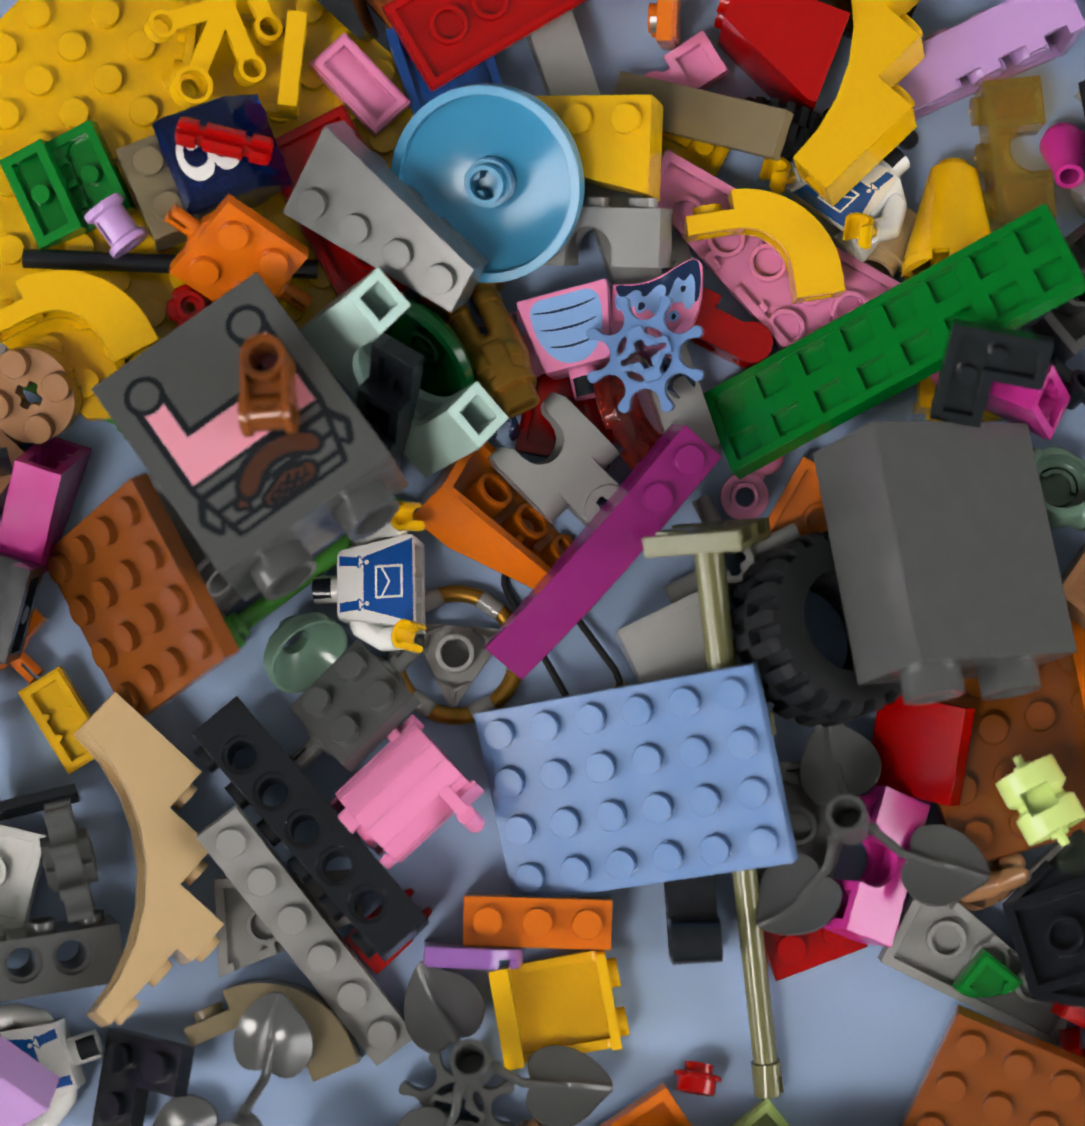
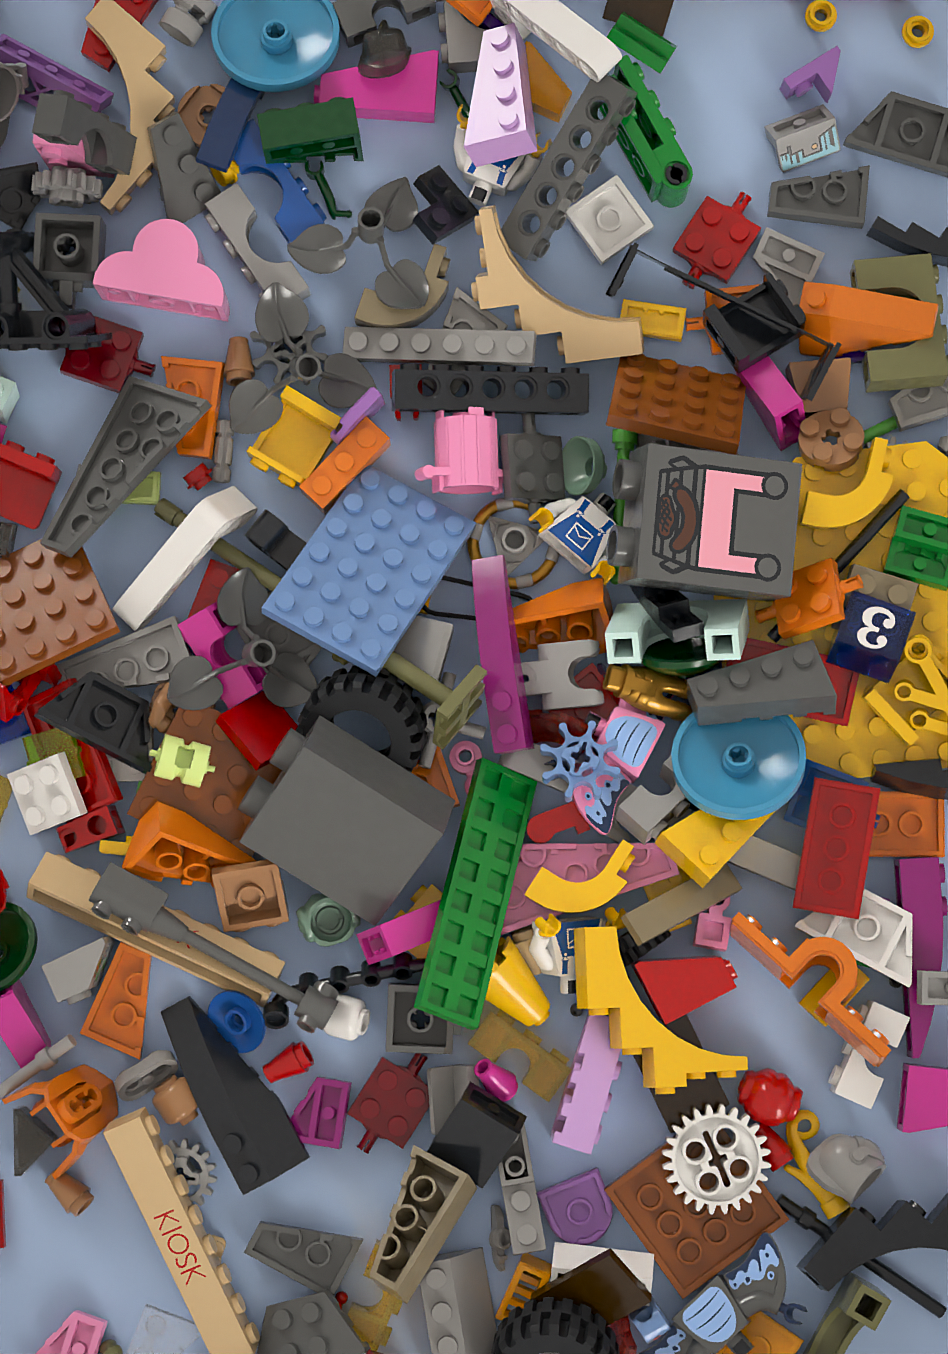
camera: 125 degrees right, 0 degrees up
(69, 859) = (578, 261): dark grey gear -> none
(116, 225) = (879, 552): lavender bush -> none
(181, 298) = (809, 547): red plate -> none
(224, 141) = (874, 639): red axle -> none
(267, 397) = (720, 544): dark orange piece -> none
(359, 84) = (851, 745): bright pink tile -> none
(644, 1076) = (223, 452): none -> light grey axle
(802, 1014) = (180, 554): none -> white beam
(985, 354) = (428, 920): black plate -> none
(986, 977) = (120, 660): green tile -> none

